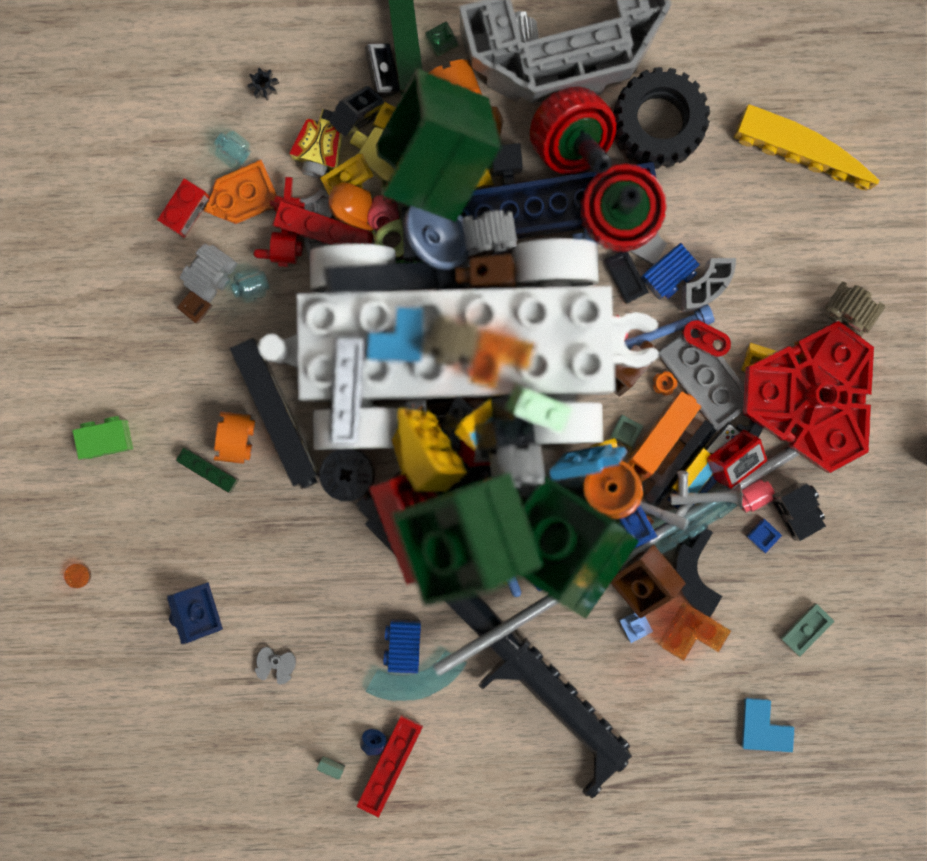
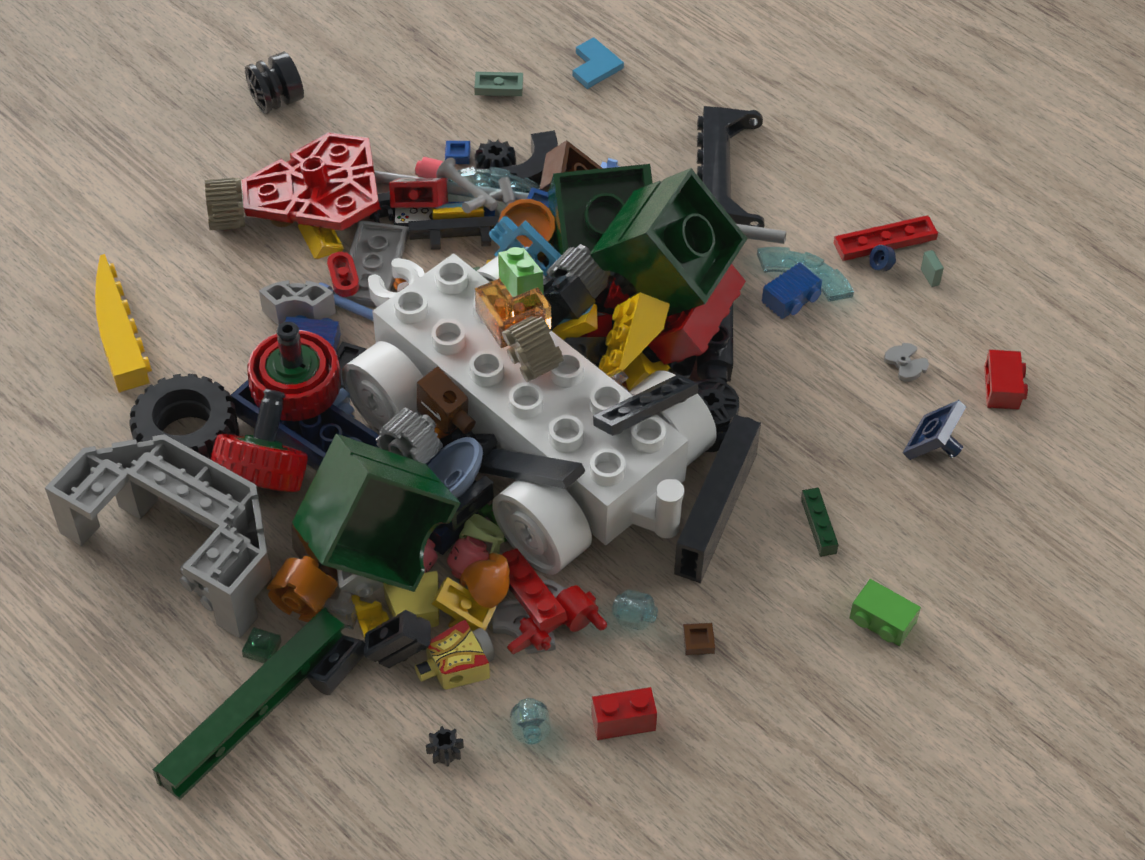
camera: 135 degrees left, 35 degrees down
(77, 575) = (1009, 546): clear orange tile -> none
(194, 713) = (1004, 379): none -> red brick
(208, 272) = (658, 640): light grey brick -> none
(233, 437) = (771, 512): orange brick -> none
(241, 194) = (560, 684): orange tile -> none
(405, 344) = (566, 389): dark azure tile -> none
(663, 435) = (466, 240): orange slope -> none
(690, 626) = (588, 136): clear orange brick -> none
(728, 562) = (495, 155): none -> black gear
(799, 510) = (415, 138): black brick -> none

